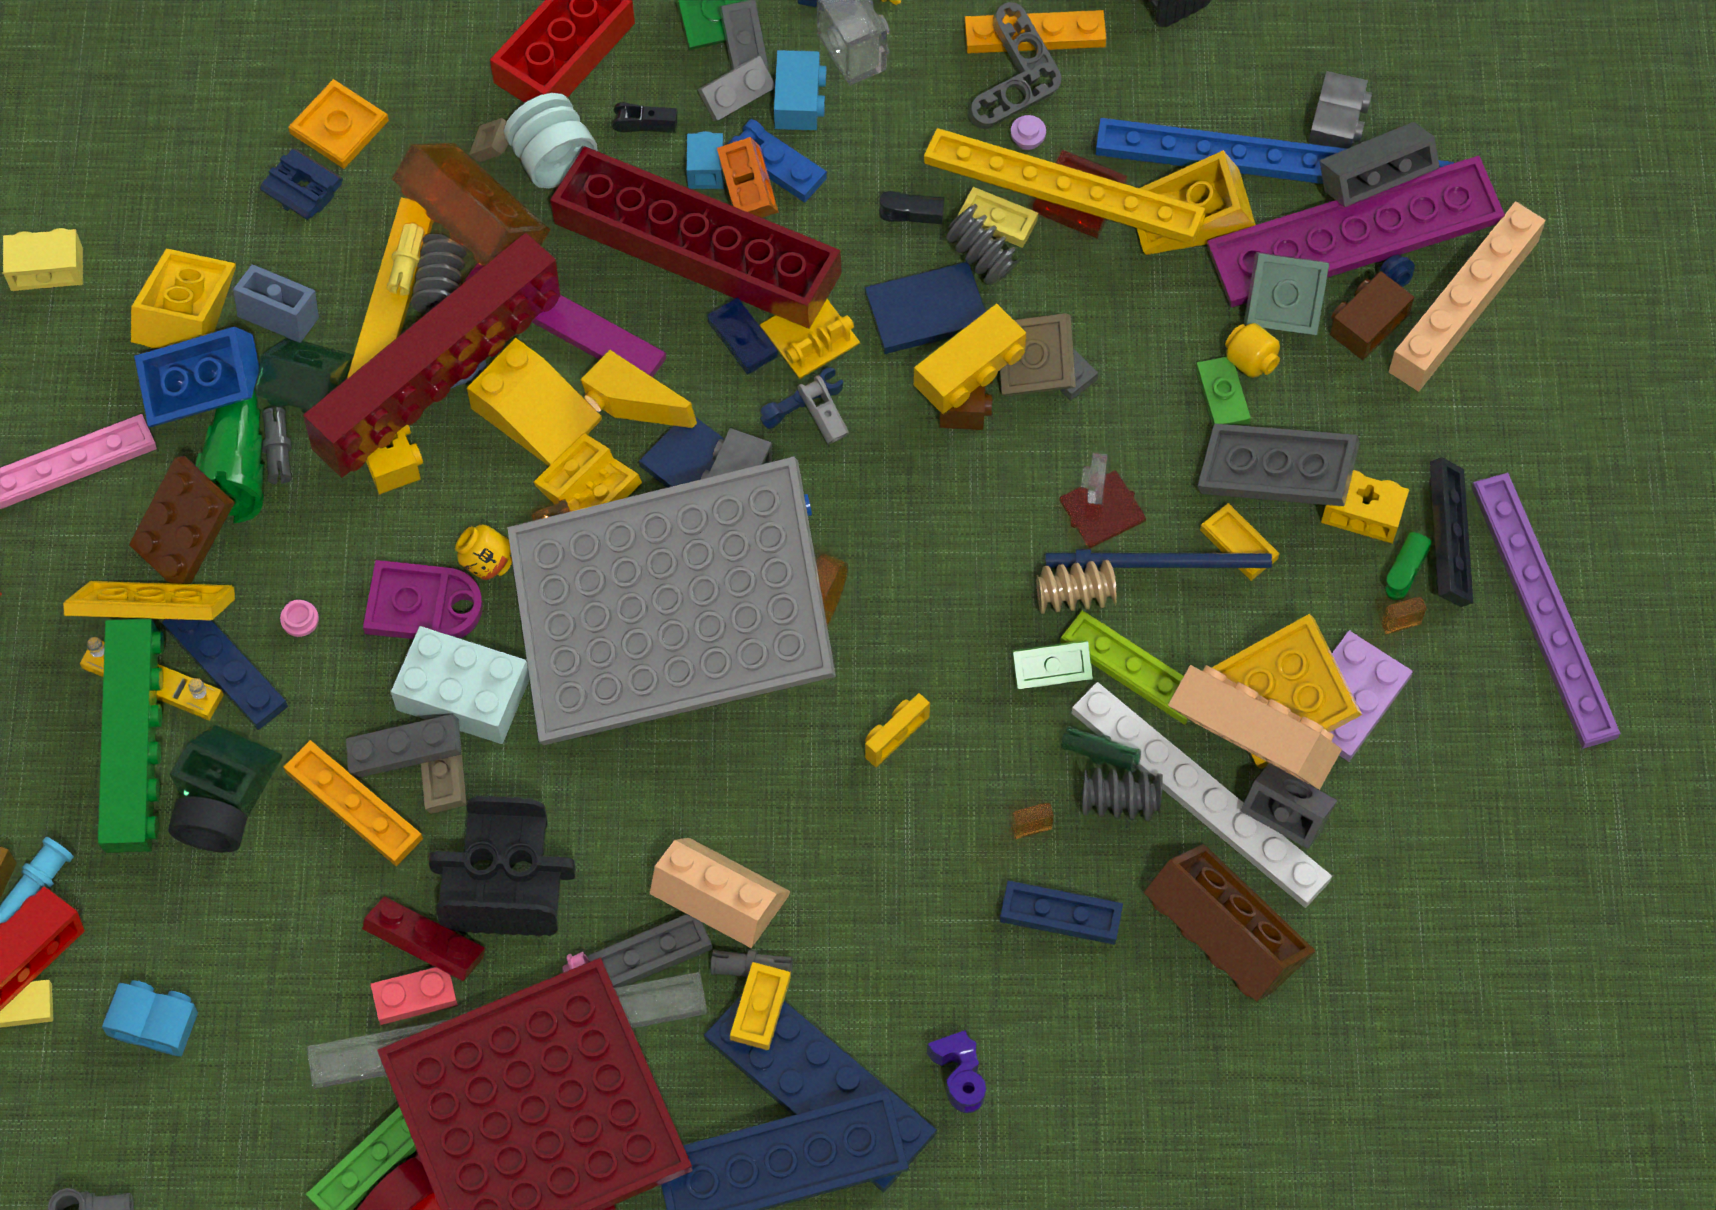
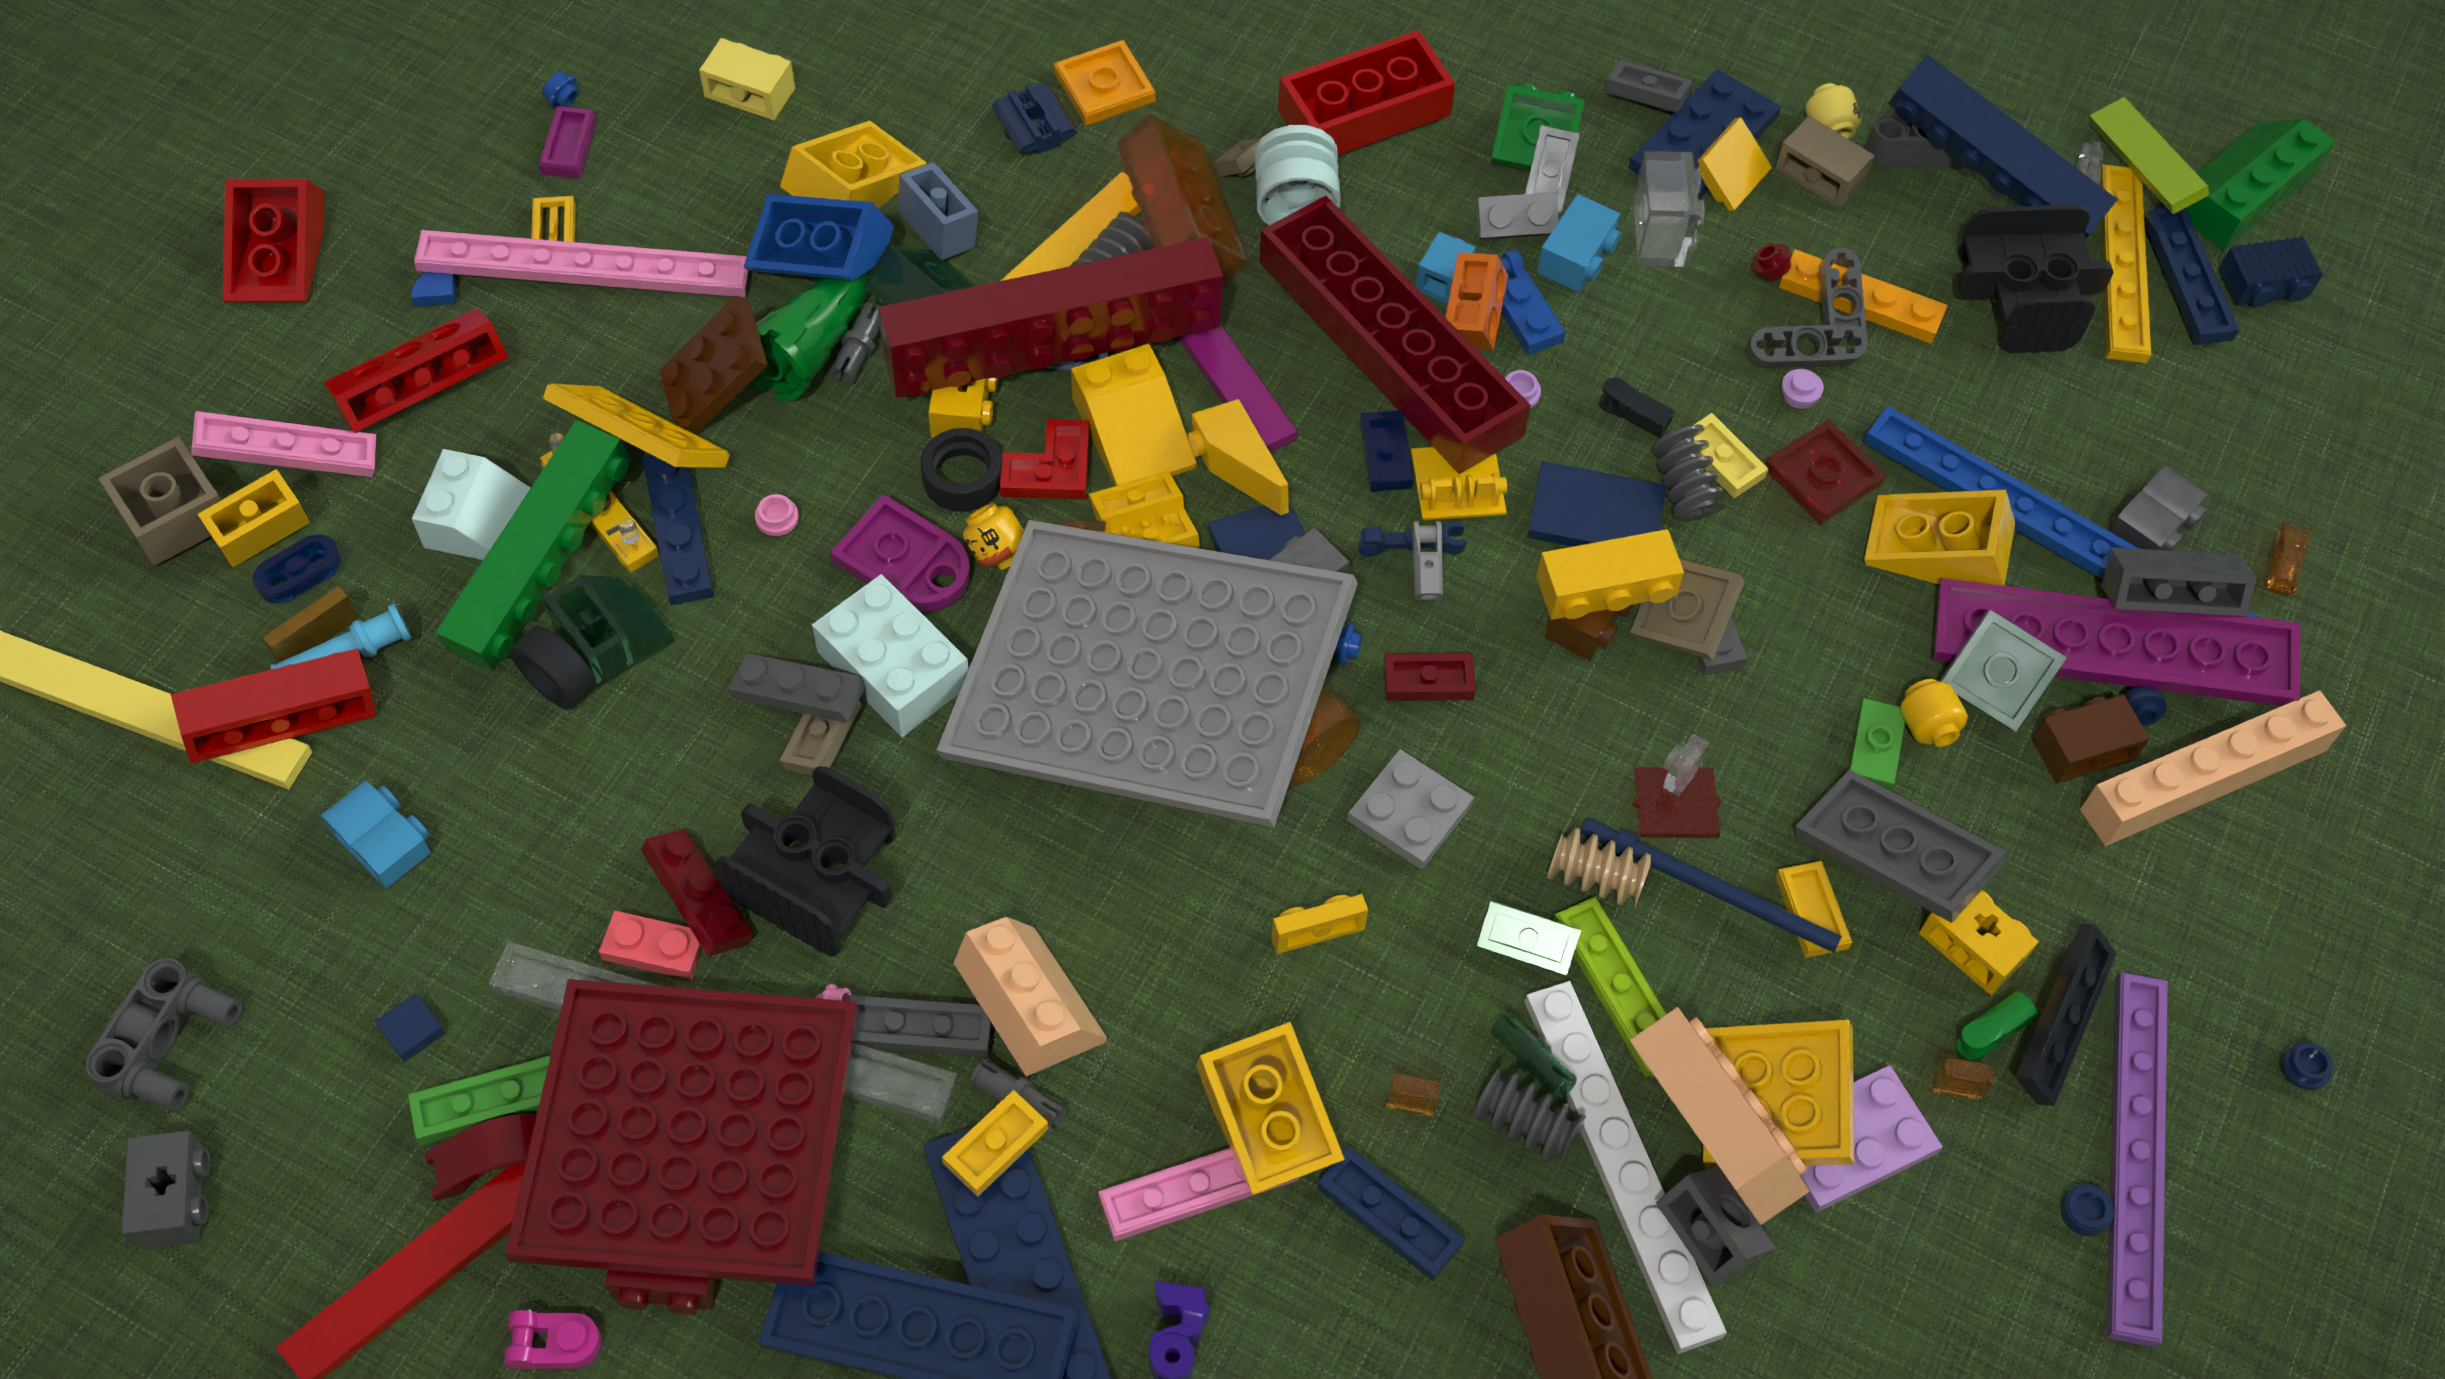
camera: 25 degrees right, 5 degrees down
(55, 730) = (466, 505): none -> light aqua slope
(270, 1147) = (409, 1027): none -> dark blue tile
(353, 803) = (713, 721): light orange plate -> none
(405, 259) = (1088, 226): light yellow axle -> none
(418, 485) = (966, 443): none -> black tyre
(498, 476) = (1052, 475): none -> red plate
(651, 118) = (1407, 204): black bar -> none
(819, 230) = (1526, 385): none -> lavender plate
(873, 502) = (1429, 677): none -> dark red plate
(914, 610) = (1410, 809): none -> light grey plate
(915, 963) = (1173, 1194): none -> bright pink tile
(938, 882) = (1269, 1108): none -> yellow slope
(953, 35) = (1772, 261): none -> dark red plate
(1065, 186) = (1813, 454): yellow plate -> none
(1446, 103) = (2287, 559): none -> clear orange bar
(1529, 665) = (2087, 1210): none -> dark blue tile
(1629, 487) = (2307, 1066): none -> dark blue plate

